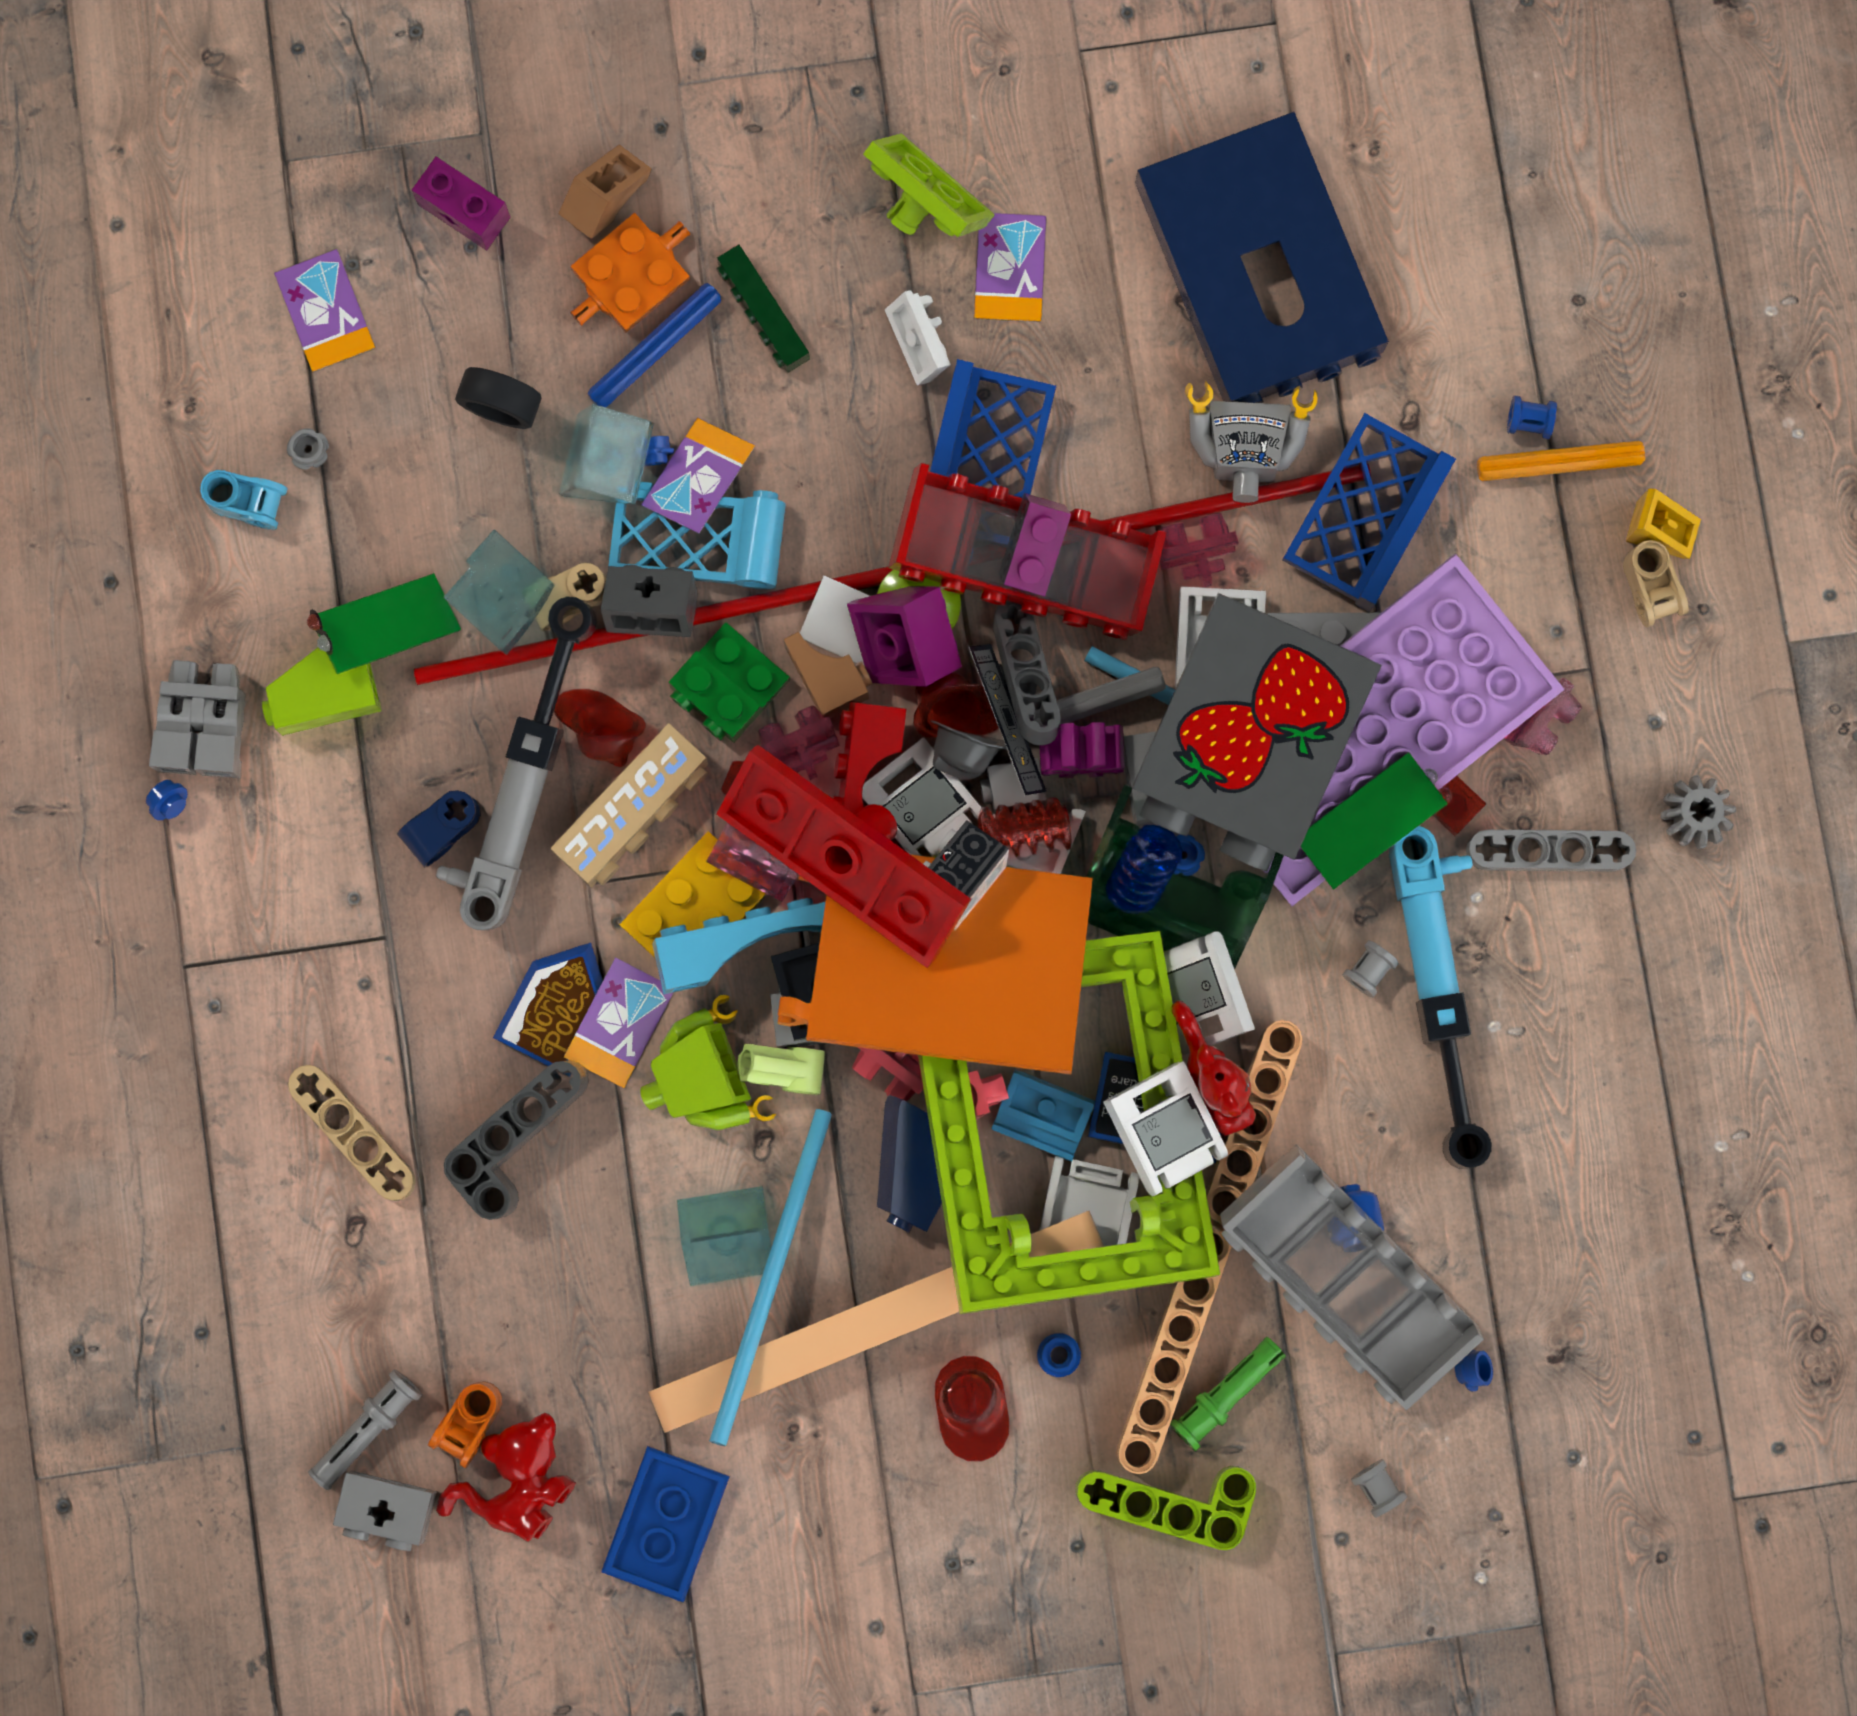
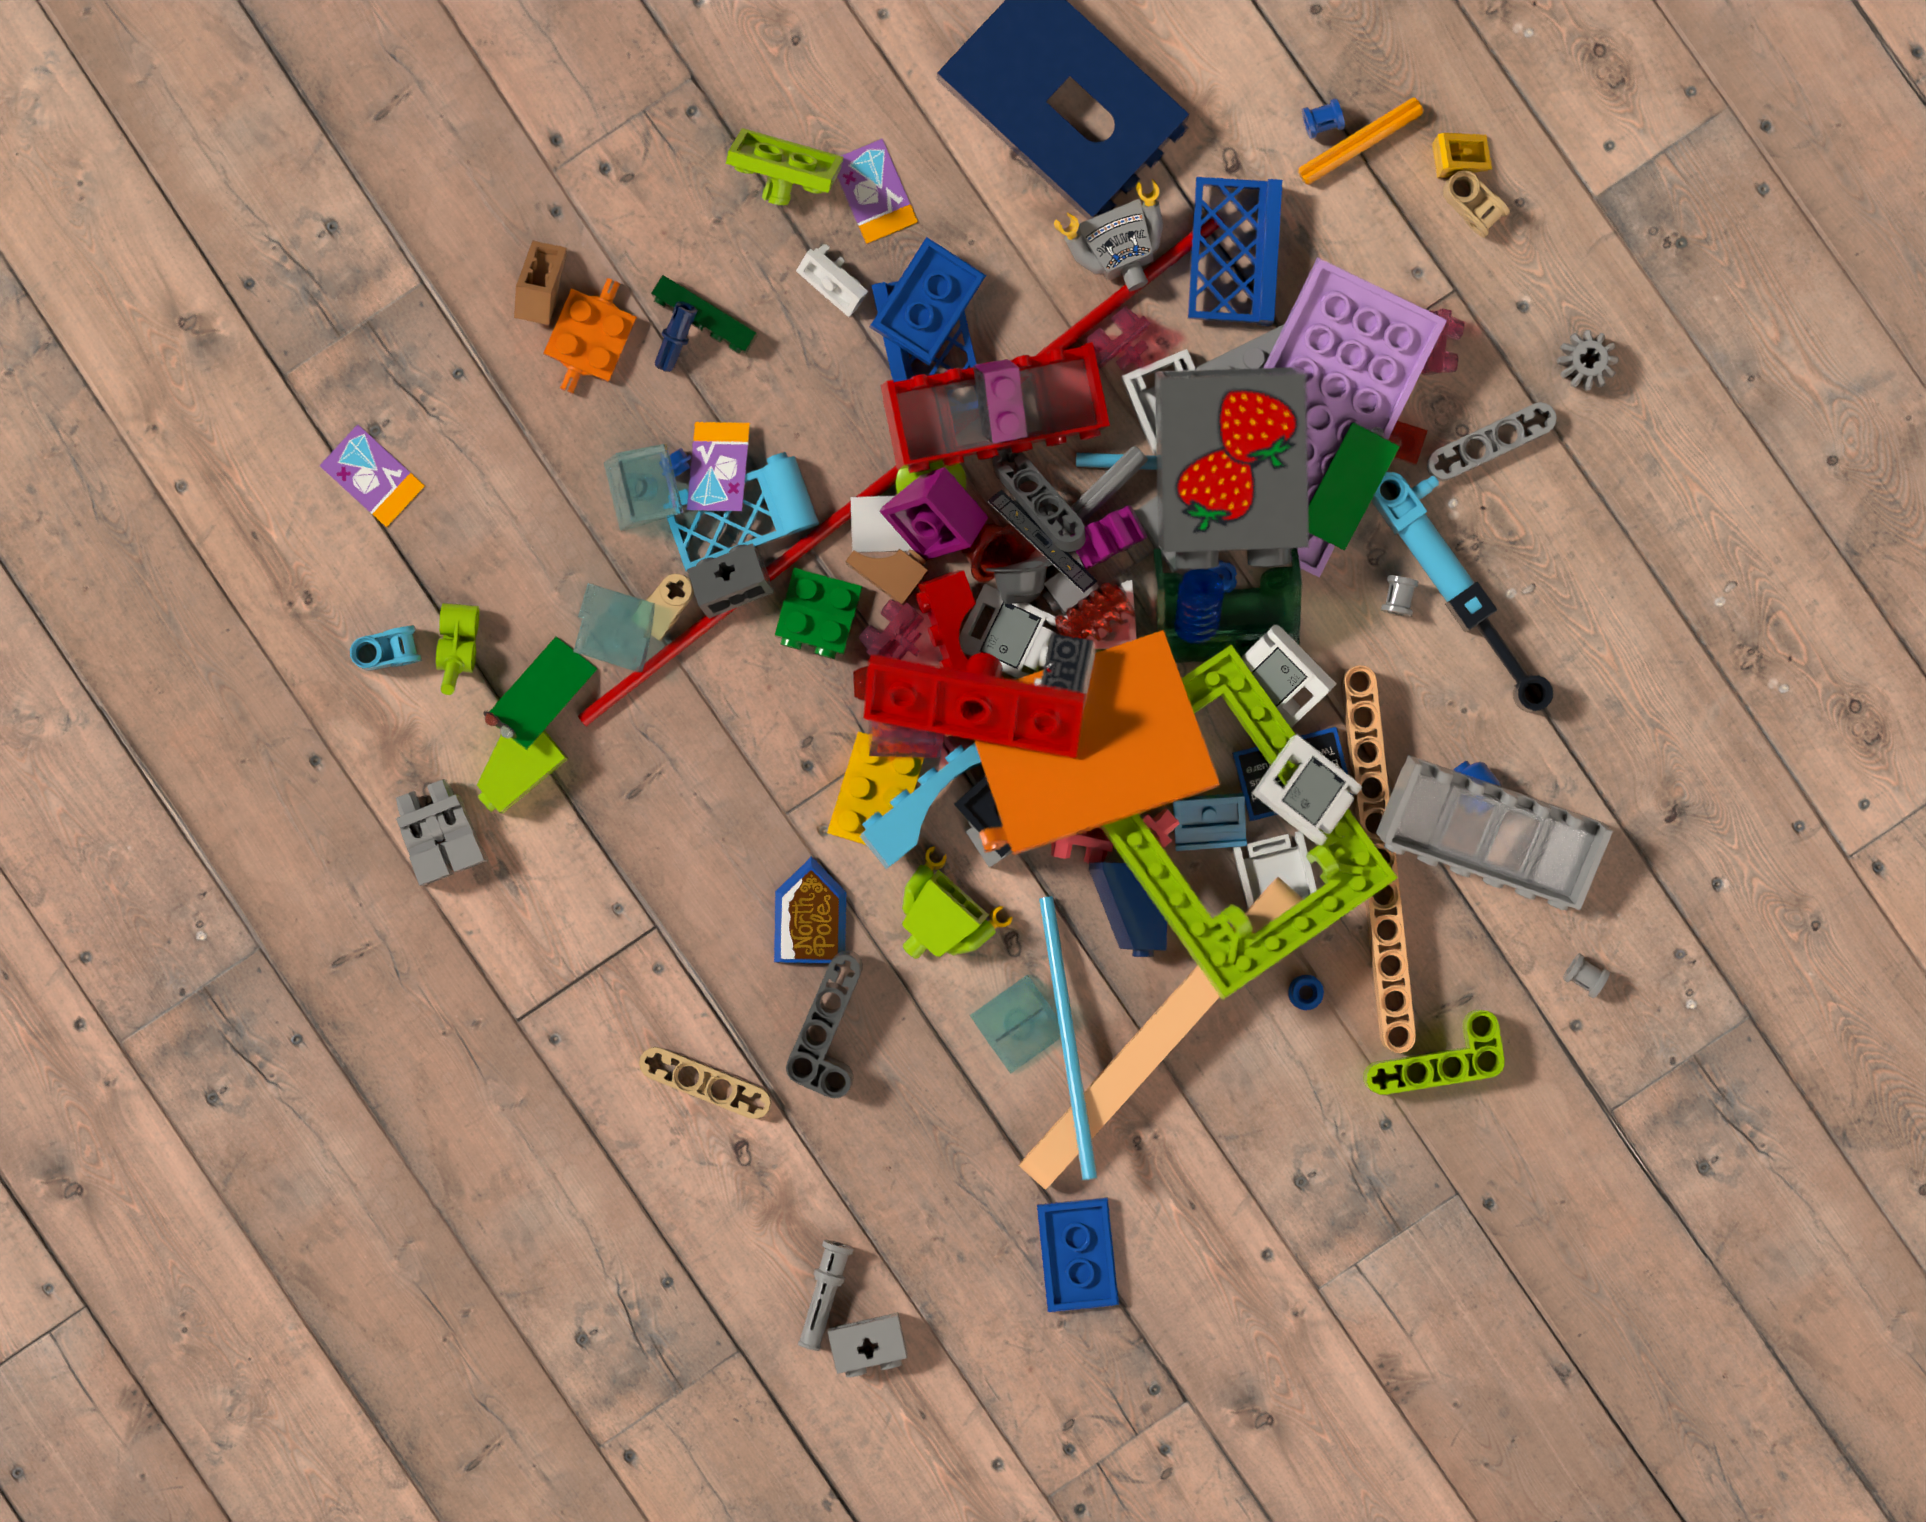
camera: 20 degrees left, 5 degrees up
(166, 800) = (443, 904): blue plate -> none
(304, 438) = (407, 581): light grey plate -> none
(323, 535) = (458, 647): none -> lime beam
(433, 832) = (654, 830): dark blue piece -> none
(461, 203) = (436, 345): magenta brick -> none
(466, 1425) = (896, 1254): orange piece -> none
(498, 398) = (540, 481): black tyre -> none
(523, 1458) = (951, 1257): red animal -> none
(530, 756) = (704, 764): light grey piece -> none
(600, 723) = (739, 690): clear red piece -> none
(619, 1023) = (862, 906): sticker -> none
(631, 806) = (791, 741): tan brick -> none
(654, 345) = (635, 383): blue axle -> none
(720, 315) = (675, 336): none -> dark blue axle
(790, 1068) = (1007, 878): yellowish green piece -> none
(972, 1408) = (1260, 1062): clear red piece -> none
(1009, 405) = (927, 301): none -> blue tile
(1213, 1407) = (1437, 976): bright green pin -> none
(1218, 1079) = (1329, 736): red animal -> none
(1474, 1370) = (1616, 856): blue plate -> none

